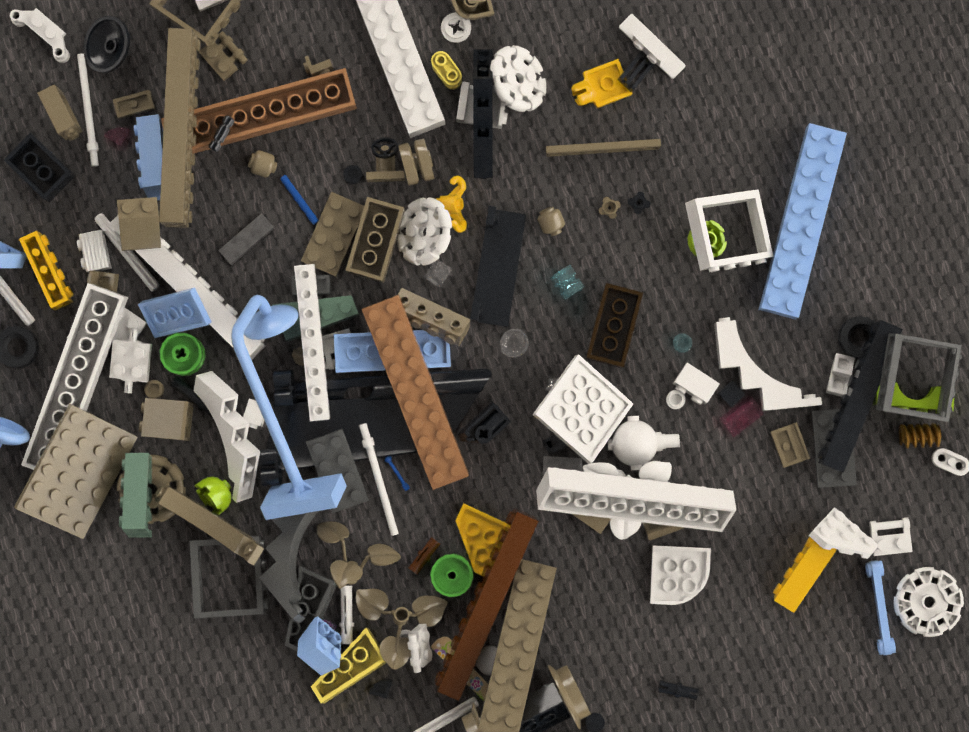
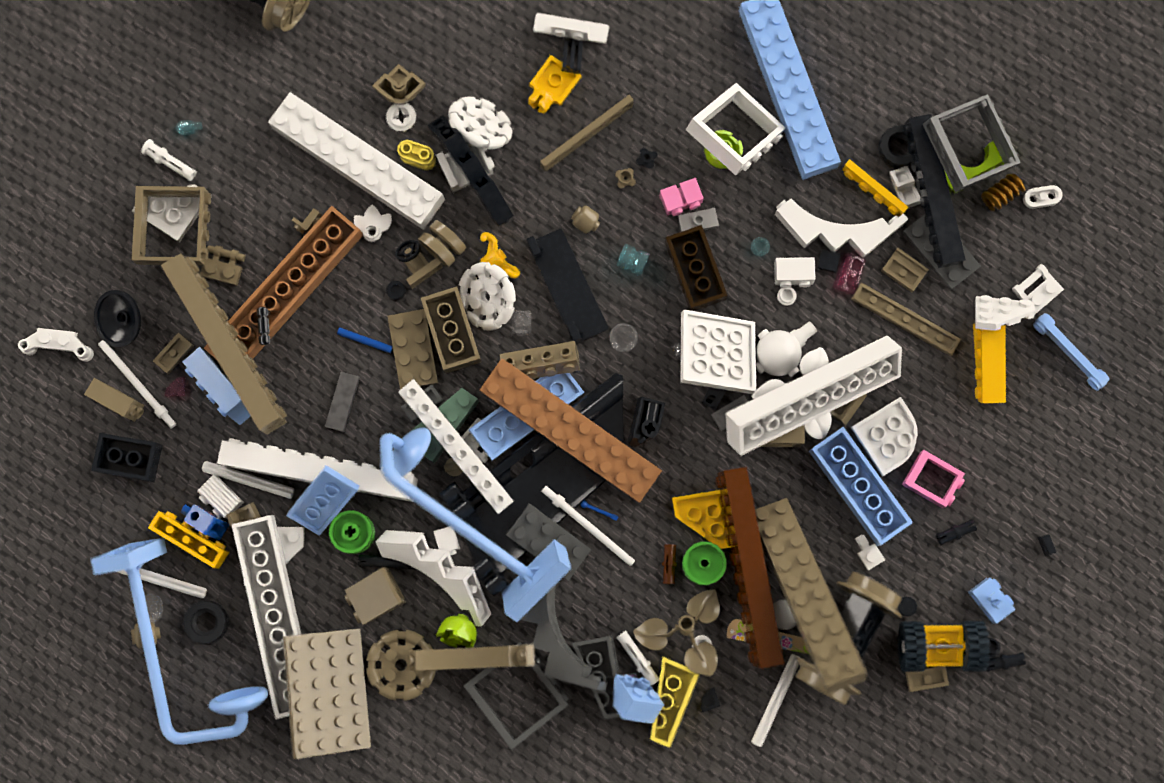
camera: 35 degrees left, 5 degrees down
(68, 263) = (204, 521): none -> blue torso
(130, 360) = (311, 567): white plate -> none
(136, 495) = (392, 677): sand green wedge -> none
(139, 223) = (242, 443): dark tan slope -> none
(154, 389) = (347, 578): dark tan tile -> none
(262, 163) = (314, 330): dark tan head -> none
(349, 572) = (617, 619): dark tan plant -> none
(373, 101) = (372, 221): none -> white plate
(419, 647) = (717, 640): white plate -> none
(594, 660) = (870, 554): none -> white plate
(624, 599) = (860, 486): none -> light blue brick
(644, 257) = (681, 198): none -> bright pink piece
(650, 287) = (706, 218): none -> light grey plate
(684, 615) = (915, 470): none -> bright pink window
(761, 487) = (906, 319): none -> dark tan tile
(814, 367) = (869, 184): none -> yellow plate
(917, 598) = (1094, 322): white plate -> none

